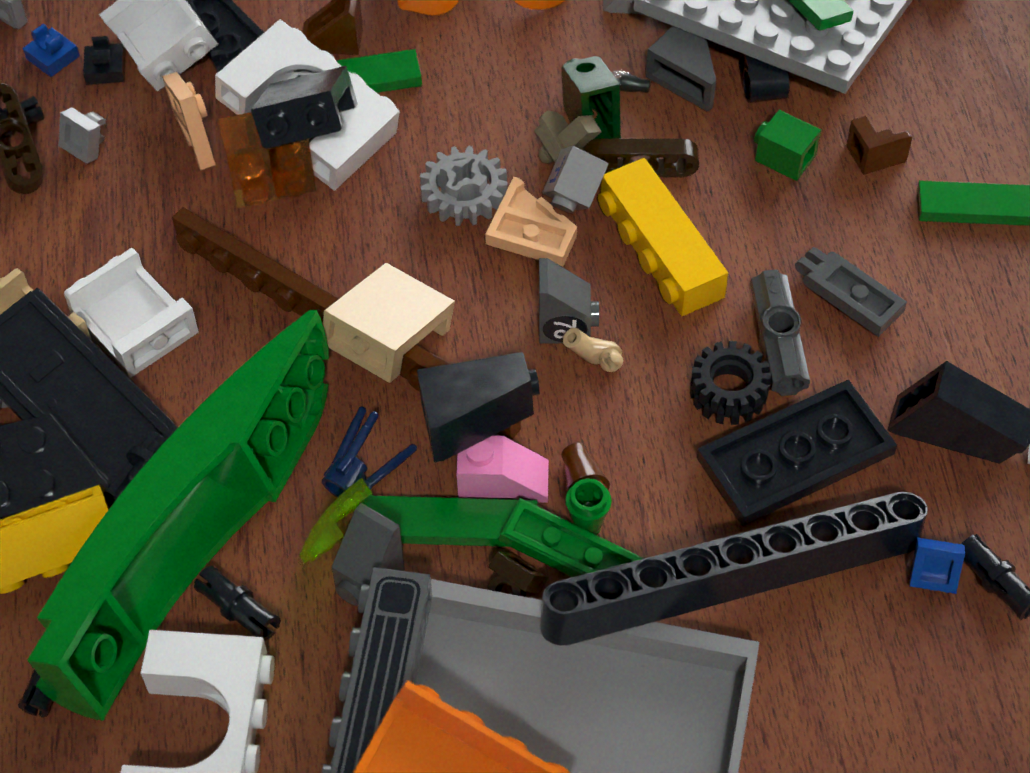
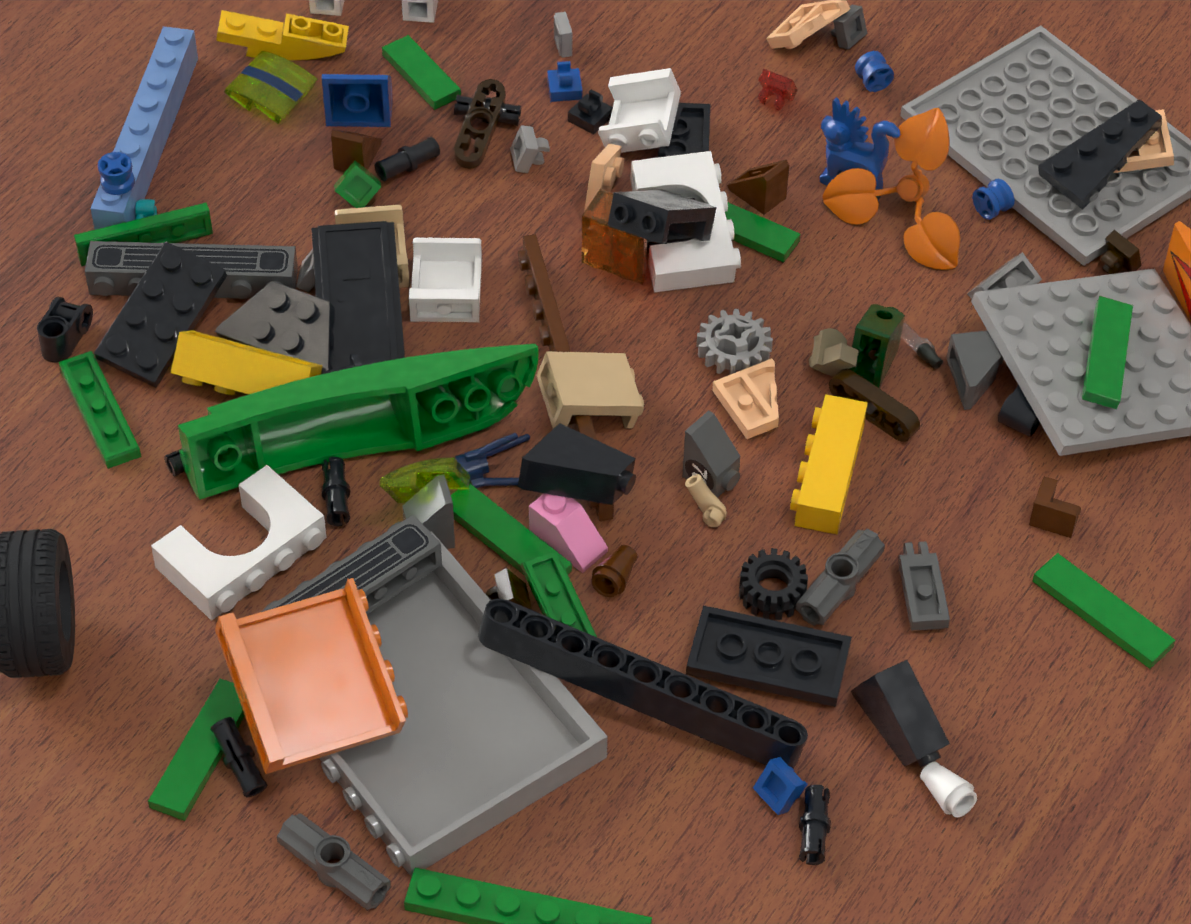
camera: 40 degrees right, 5 degrees down
(574, 179) = (805, 386): light grey brick -> none
(588, 504) = (592, 585): green cone -> none
(787, 144) = (987, 465): green brick -> none

